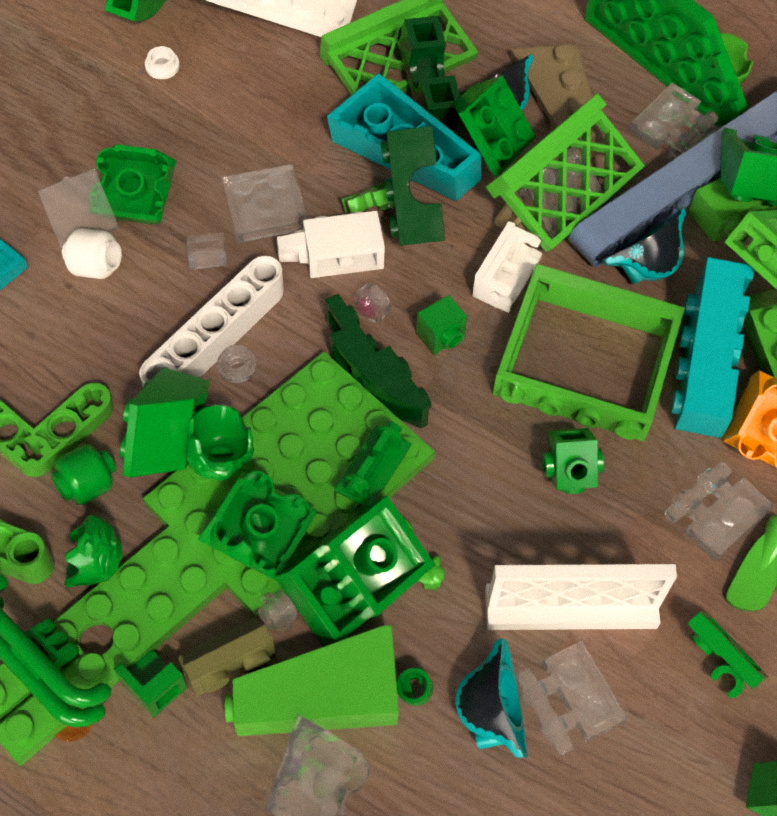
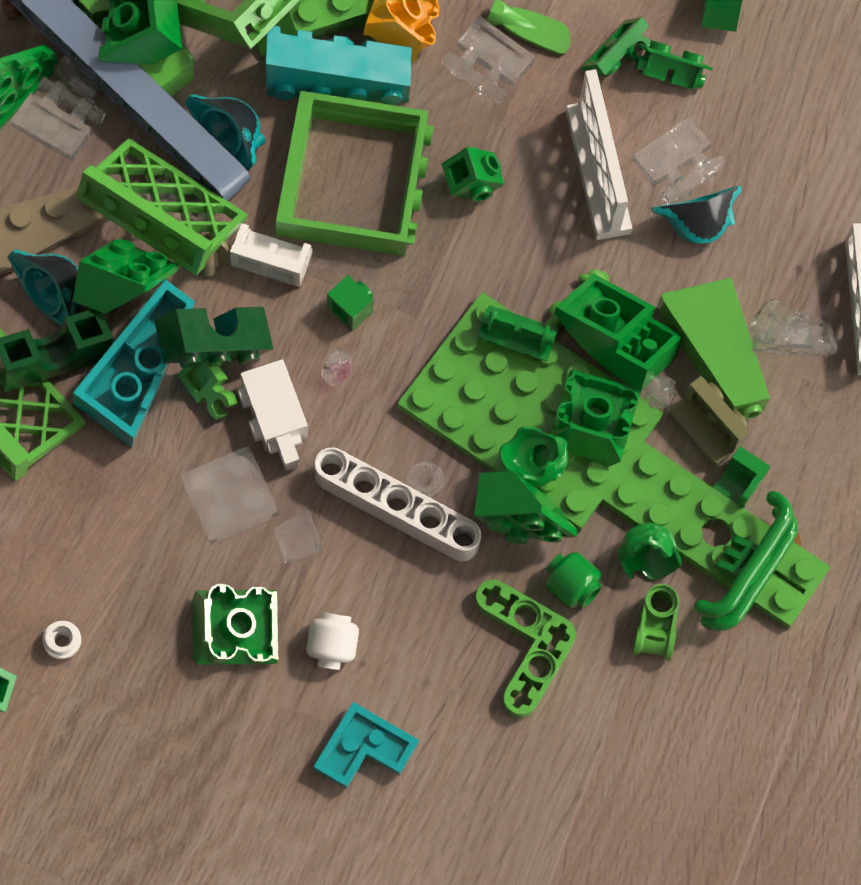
camera: 105 degrees left, 10 degrees up
(78, 204) = (279, 669): clear piece -> none
(376, 370) = (413, 349): dark green slope -> none
(405, 688) = (696, 268): green hinge -> none
(699, 733) = (686, 68): none -> green hinge

